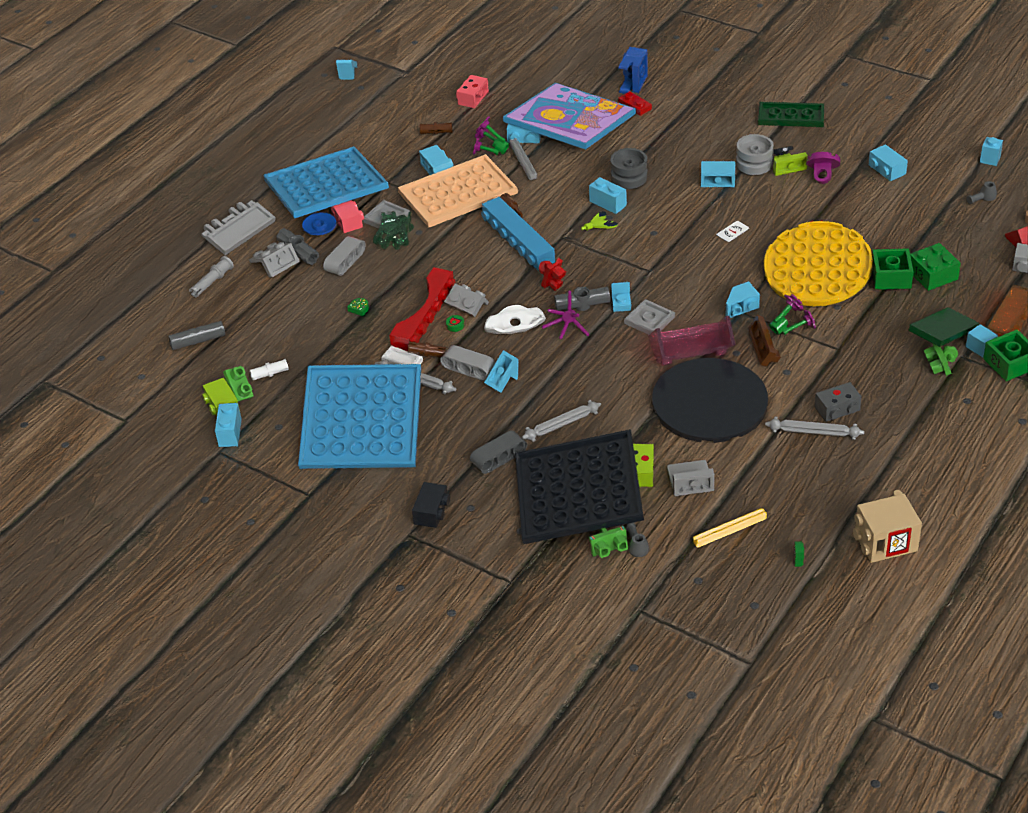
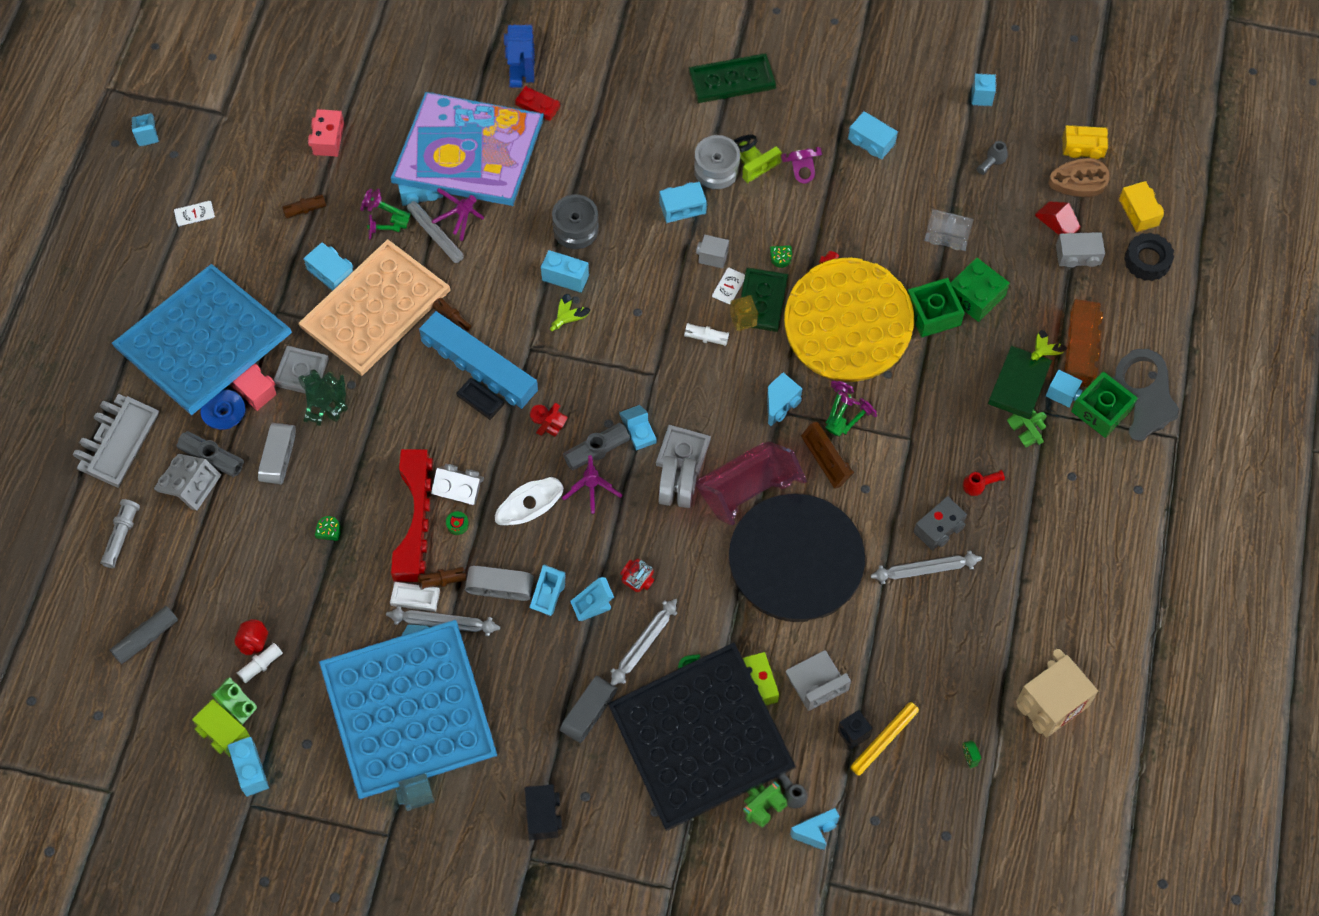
camera: 25 degrees left, 20 degrees up
(270, 352) = (251, 637): none -> red head
(341, 469) = (415, 792): none -> clear light blue brick
(357, 120) = (194, 213): none -> white sticker
(508, 257) = (480, 398): none -> black tile
(535, 387) = (593, 600): none -> medium azure slope
(547, 143) = (463, 208): none -> magenta plant
(576, 380) = (637, 575): none -> head
(633, 327) = (679, 482): none -> light grey wheel
(640, 567) = (809, 831): none -> medium azure slope
(700, 252) = (706, 334): none -> white pin
(706, 512) = (854, 729): none -> black brick
(728, 205) = (713, 251): none -> light grey brick
(733, 241) = (743, 313): none -> clear yellow brick
(753, 242) = (768, 296): none -> dark green tile
(782, 220) = (781, 256): none -> green tile
(880, 386) = (977, 488): none -> red bar
(925, 227) = (948, 230): none -> clear brick
(976, 312) = (1042, 348): none -> lime piece

